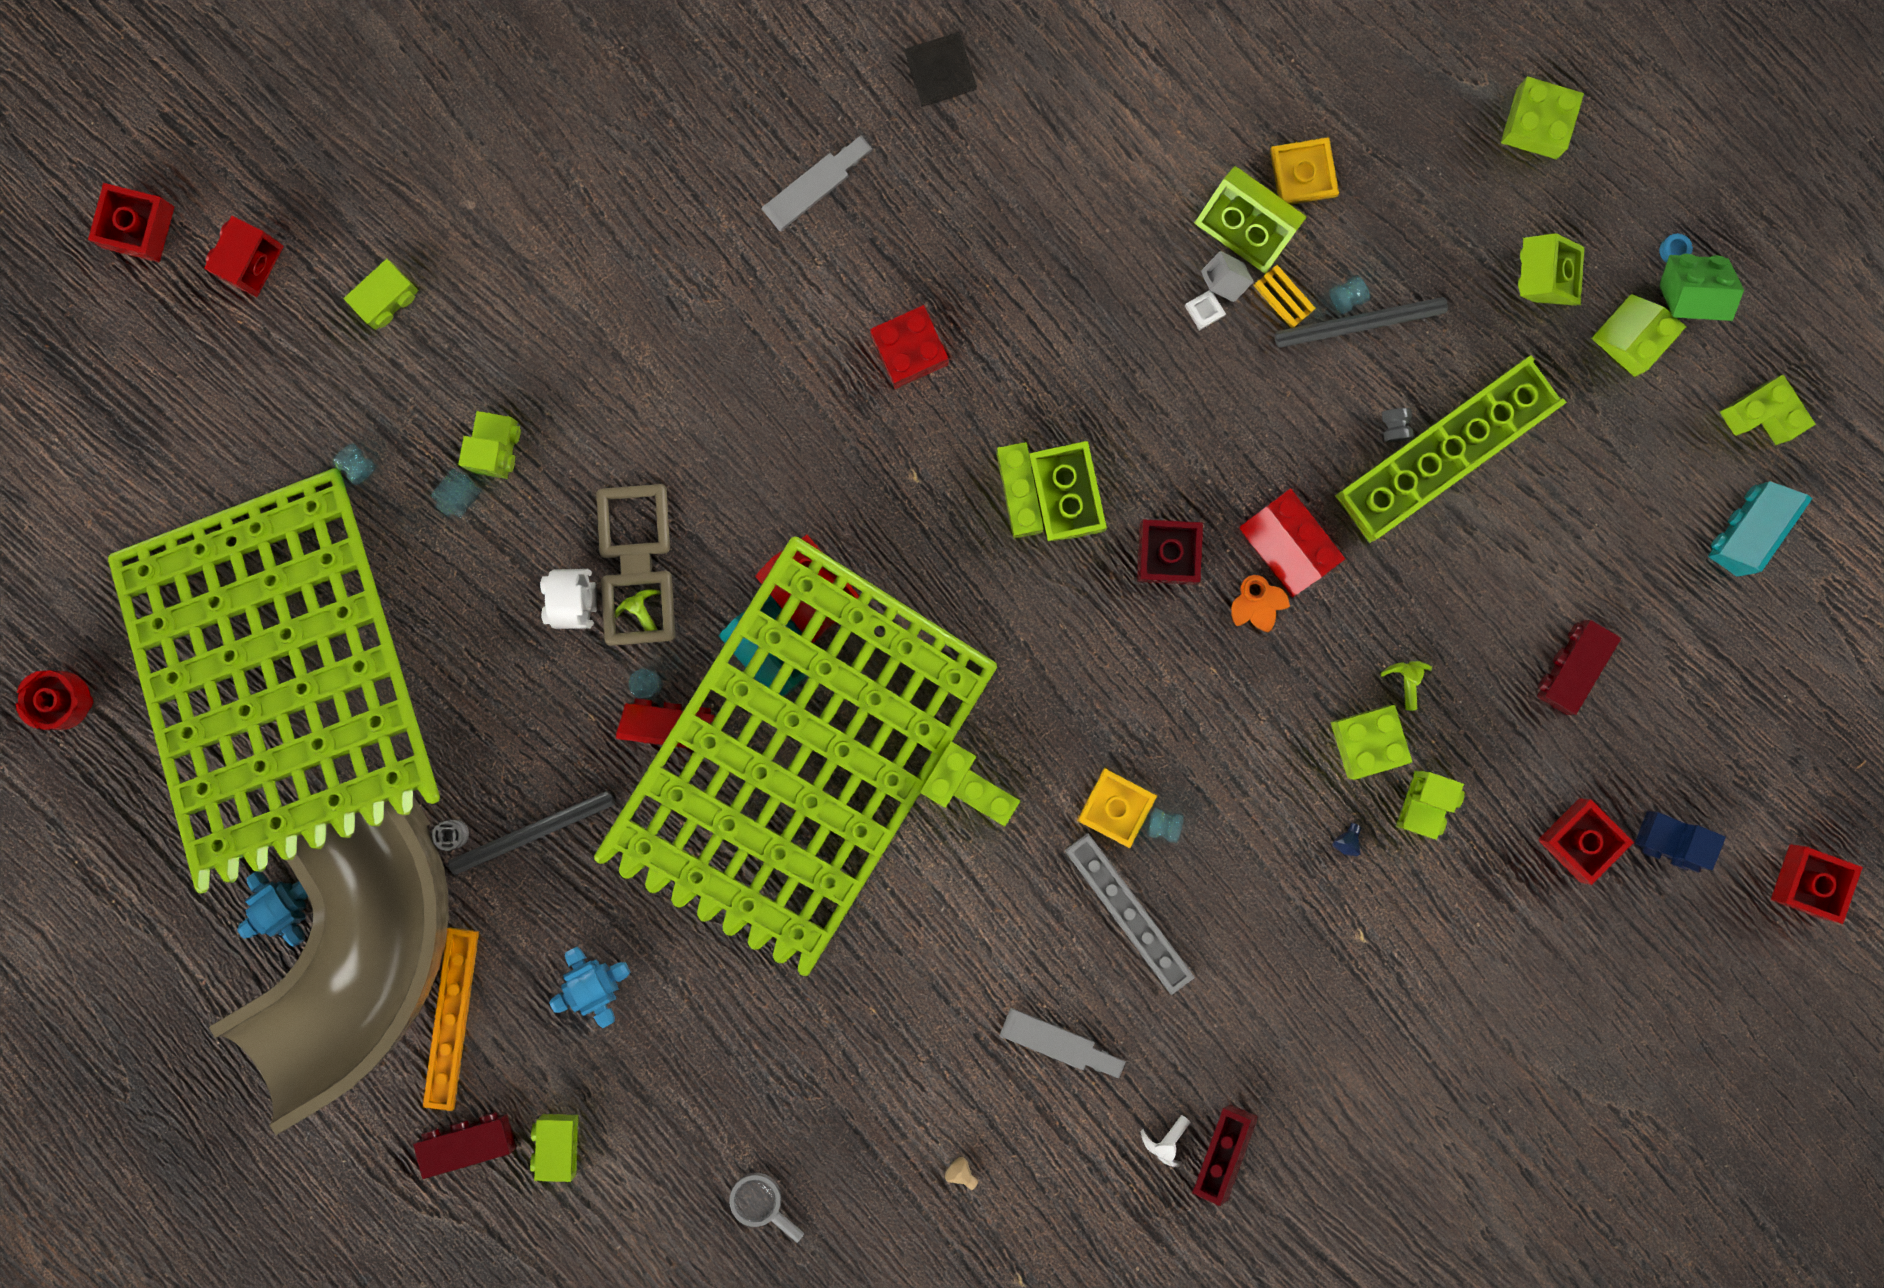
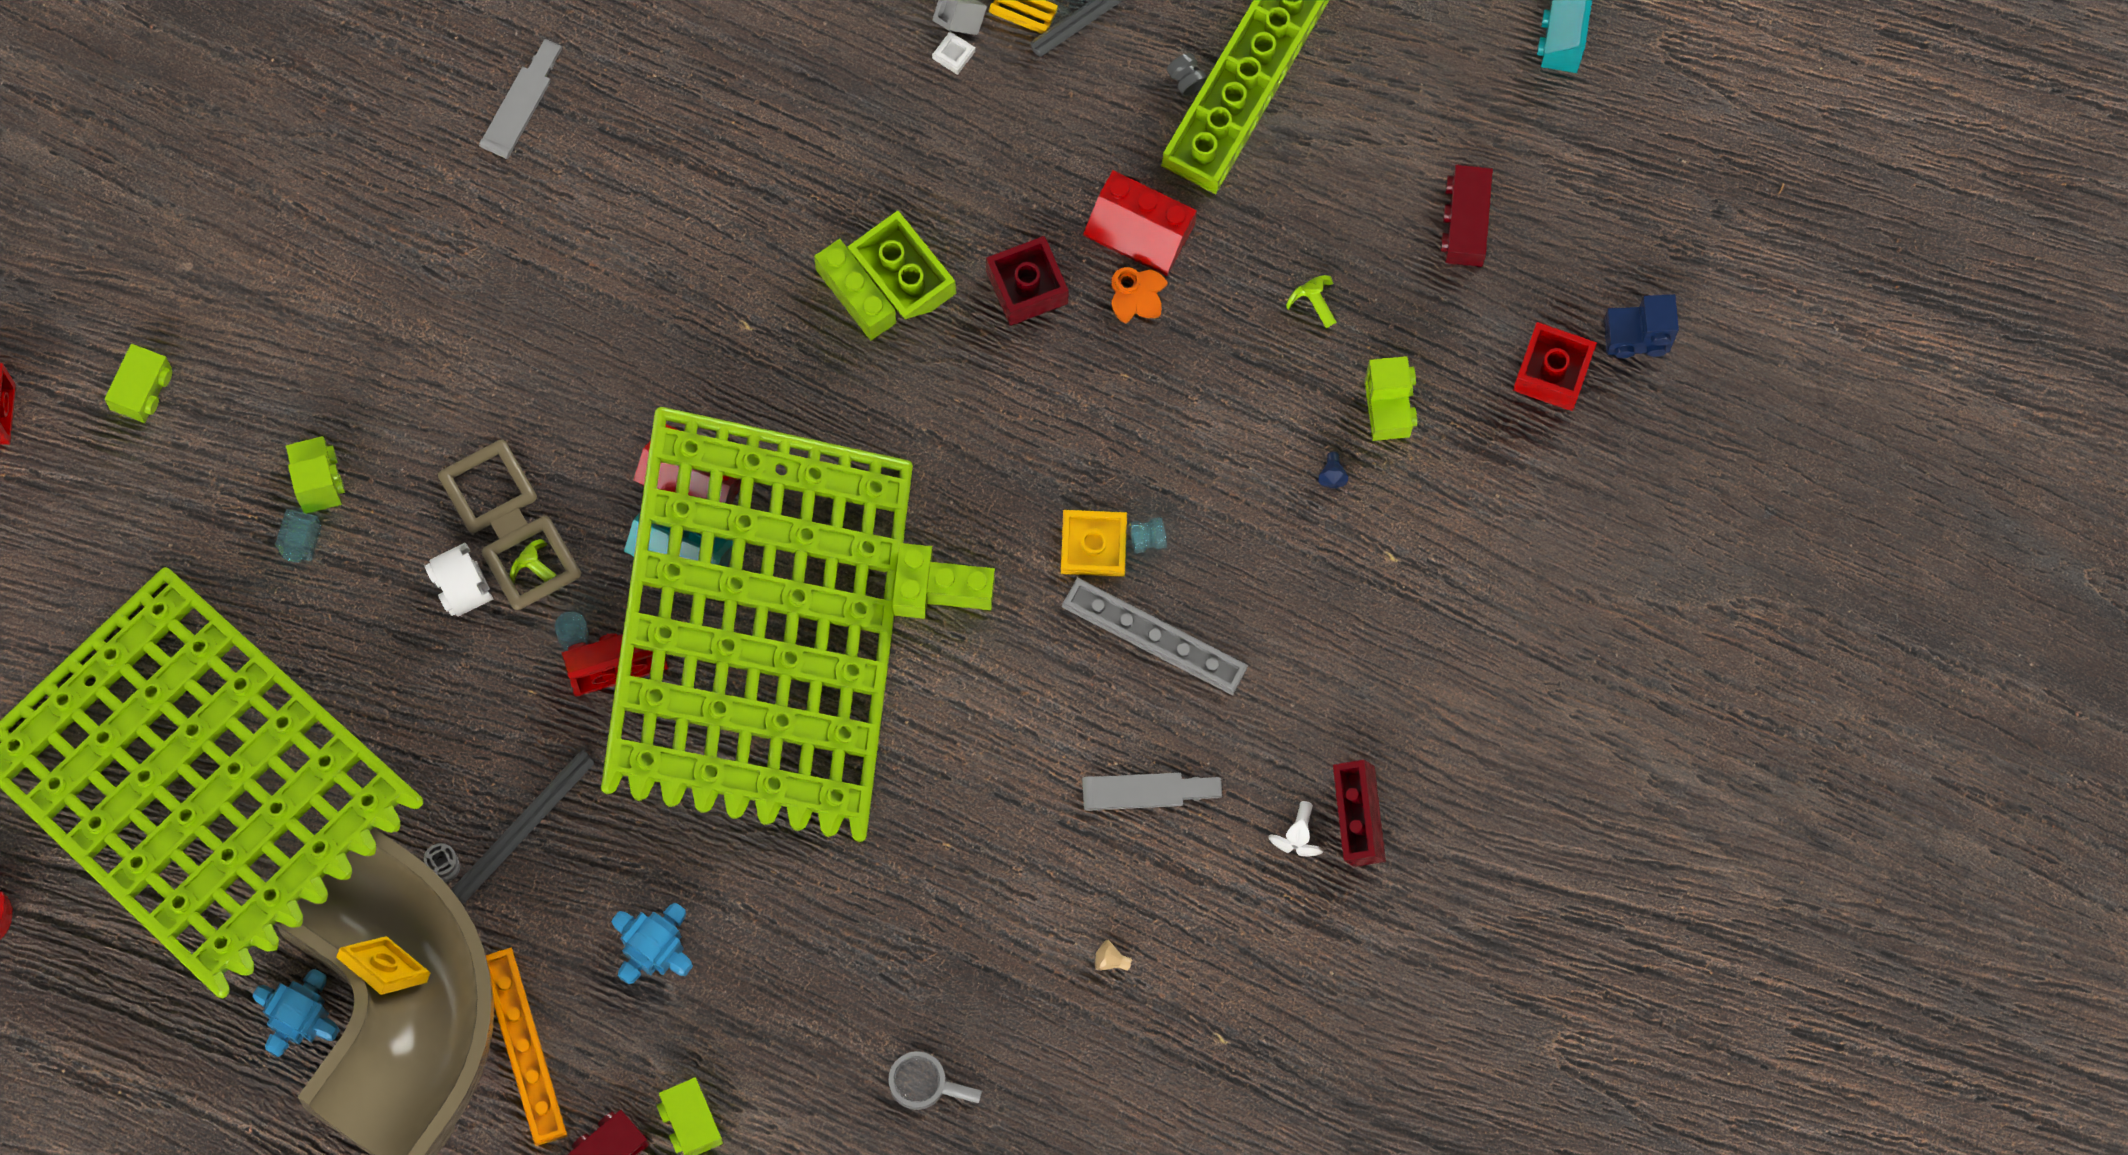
camera: 30 degrees left, 15 degrees down
(349, 919) = (383, 965): none -> yellow tile
(354, 464) = (182, 553): clear light blue wheel -> none
(909, 346) = (684, 206): red brick -> none
(1371, 742) = (1306, 369): lime brick -> none
(1816, 883) = (1790, 308): red brick -> none

